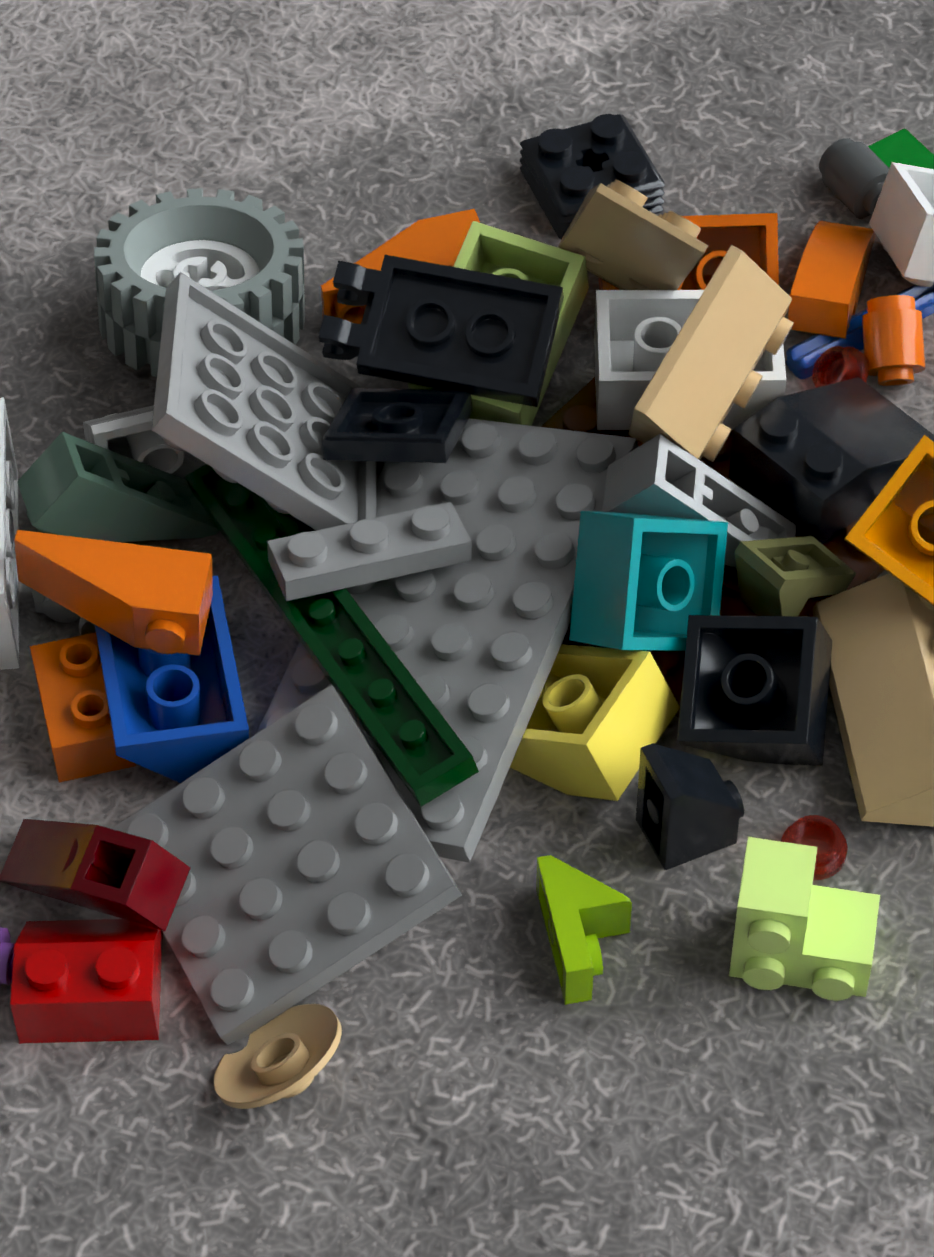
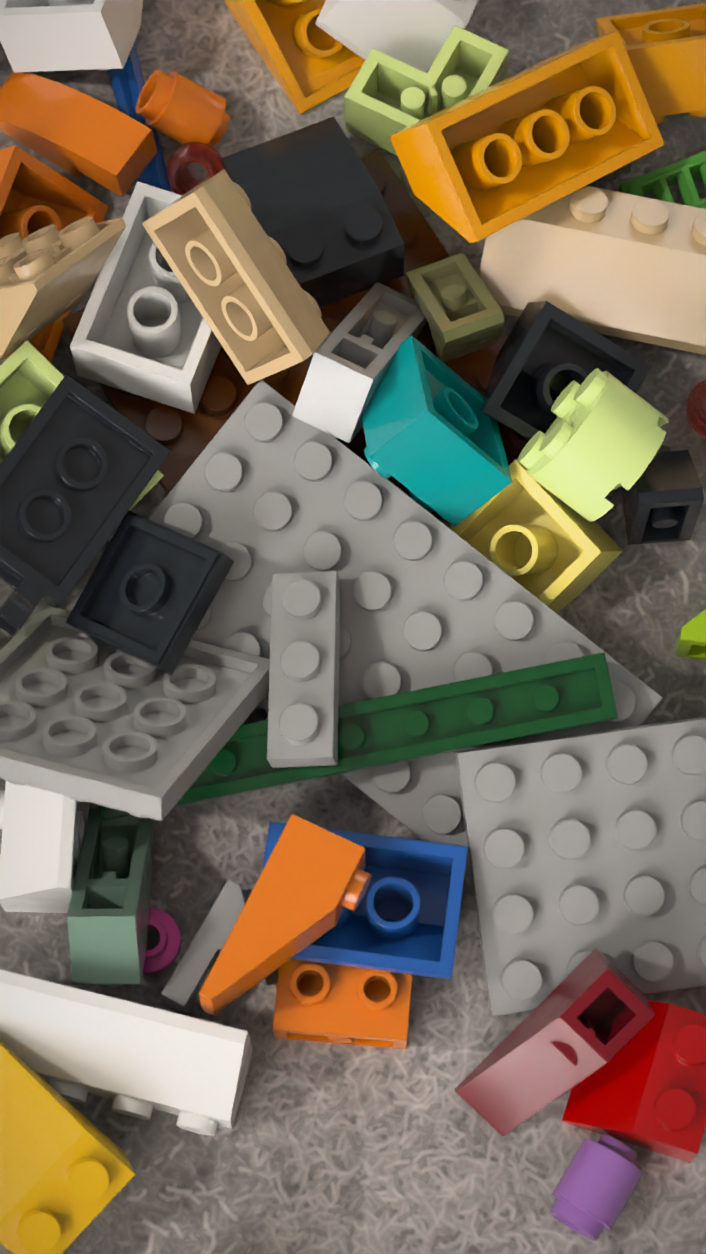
camera: 70 degrees left, 20 degrees up
(689, 694) = (595, 444): none -> yellowish green brick

